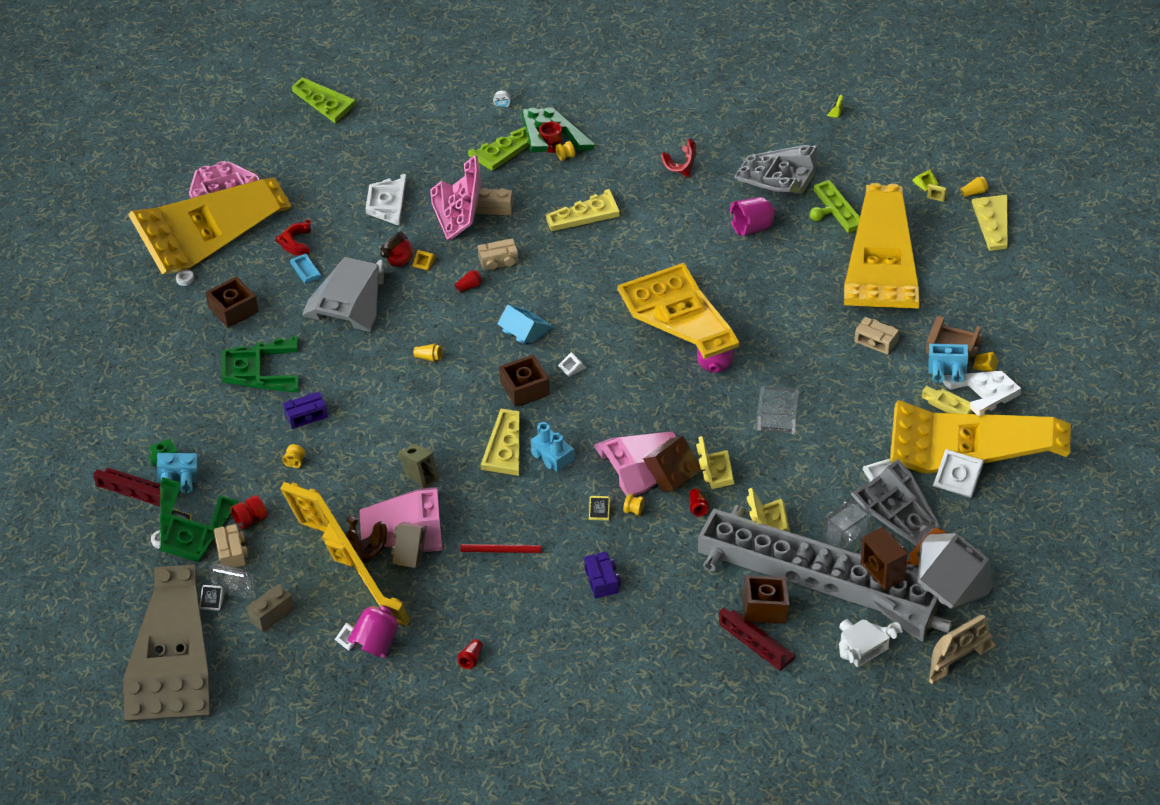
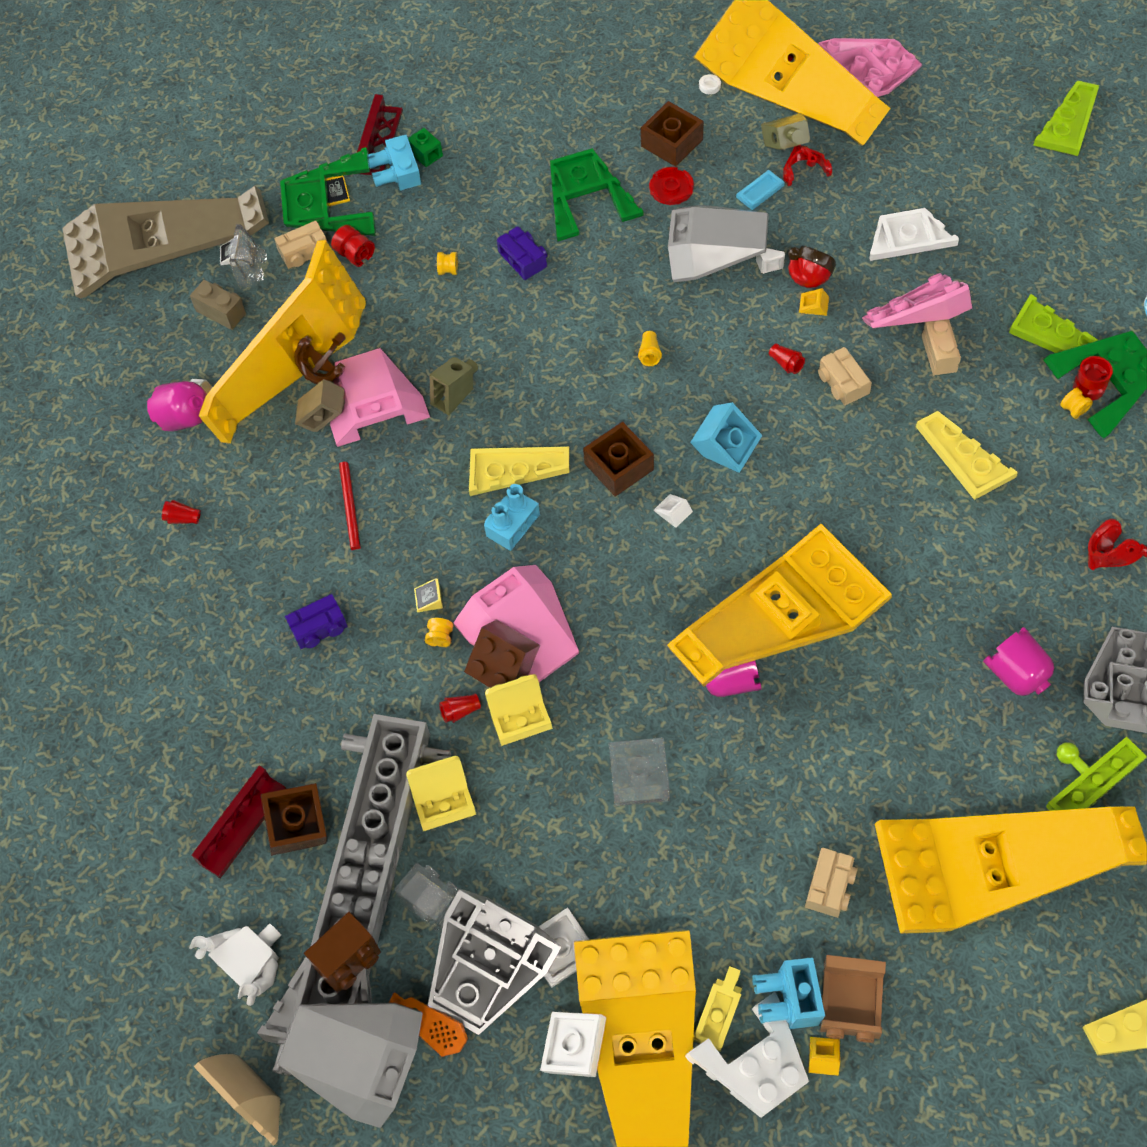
camera: 80 degrees right, 15 degrees up
(265, 237) = (788, 130): none -> olive torso
(276, 322) = (671, 186): none -> red tile

